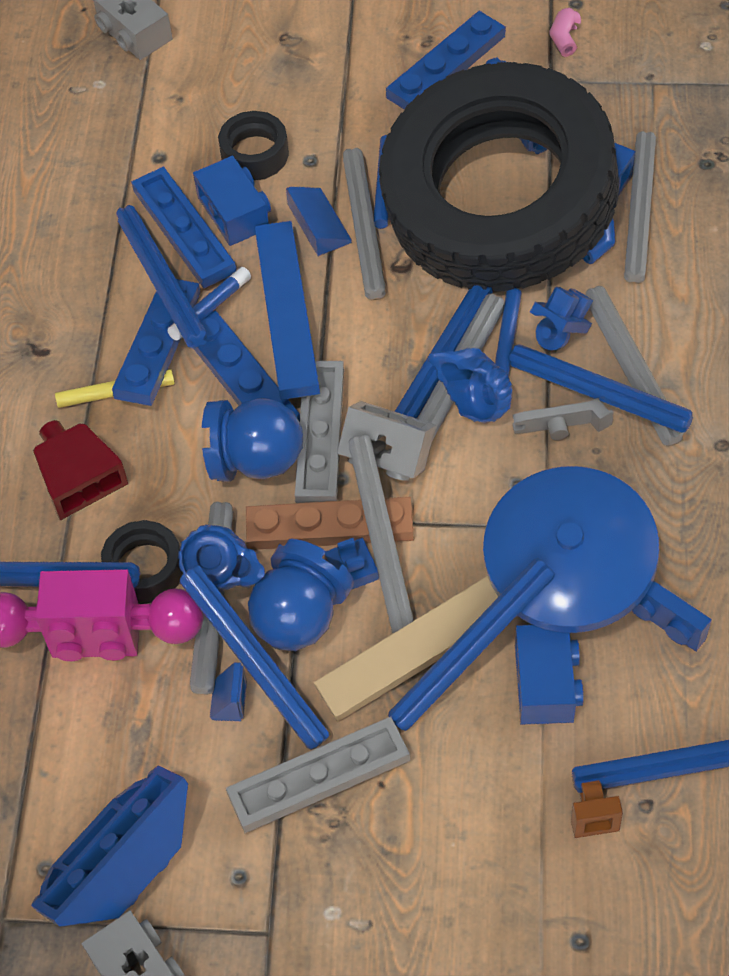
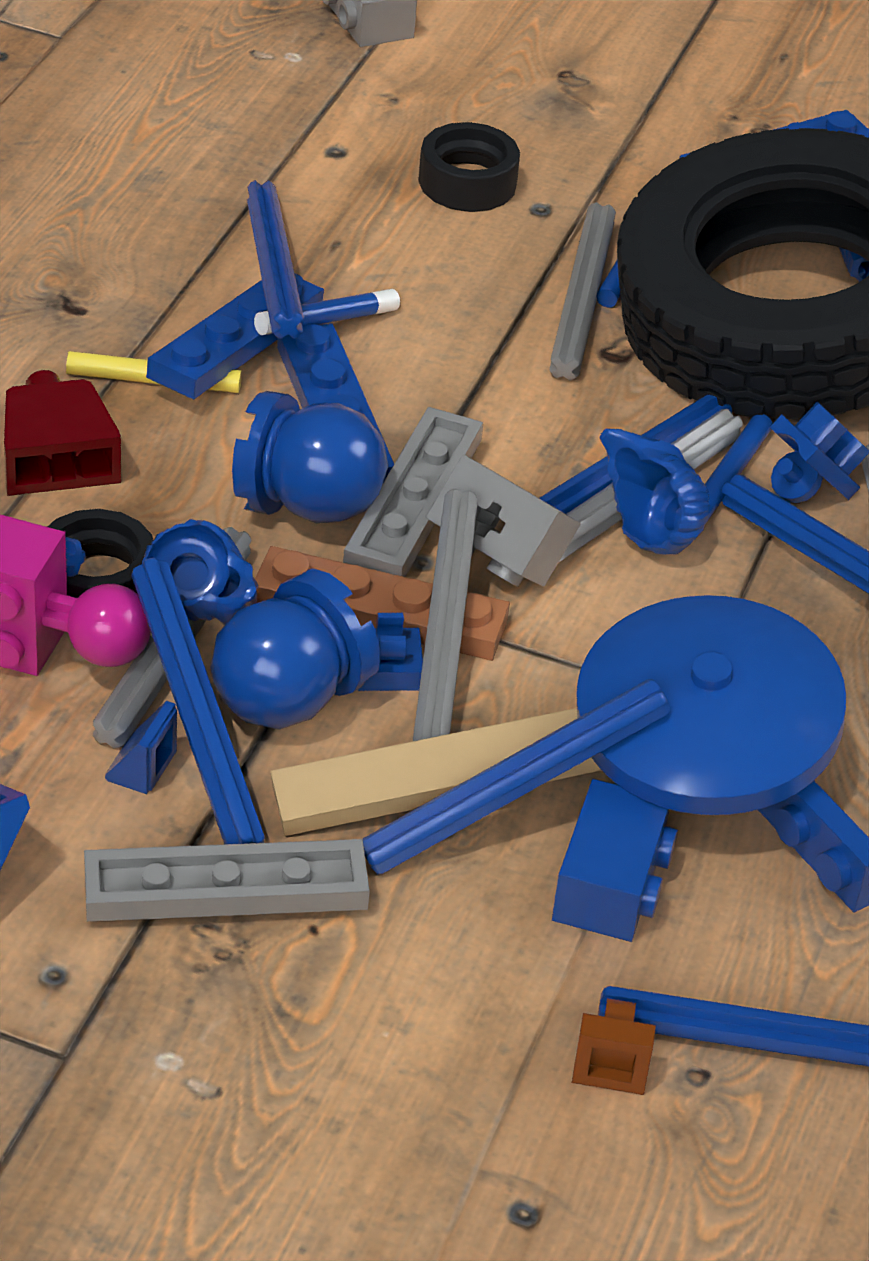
camera: 10 degrees right, 15 degrees down
(184, 227) = (332, 225): blue plate -> none
(231, 199) = (412, 213): blue brick -> none
(286, 311) = (429, 348): blue tile -> none
(317, 219) = (520, 268): blue slope -> none
(560, 417) = (767, 577): light grey piece -> none

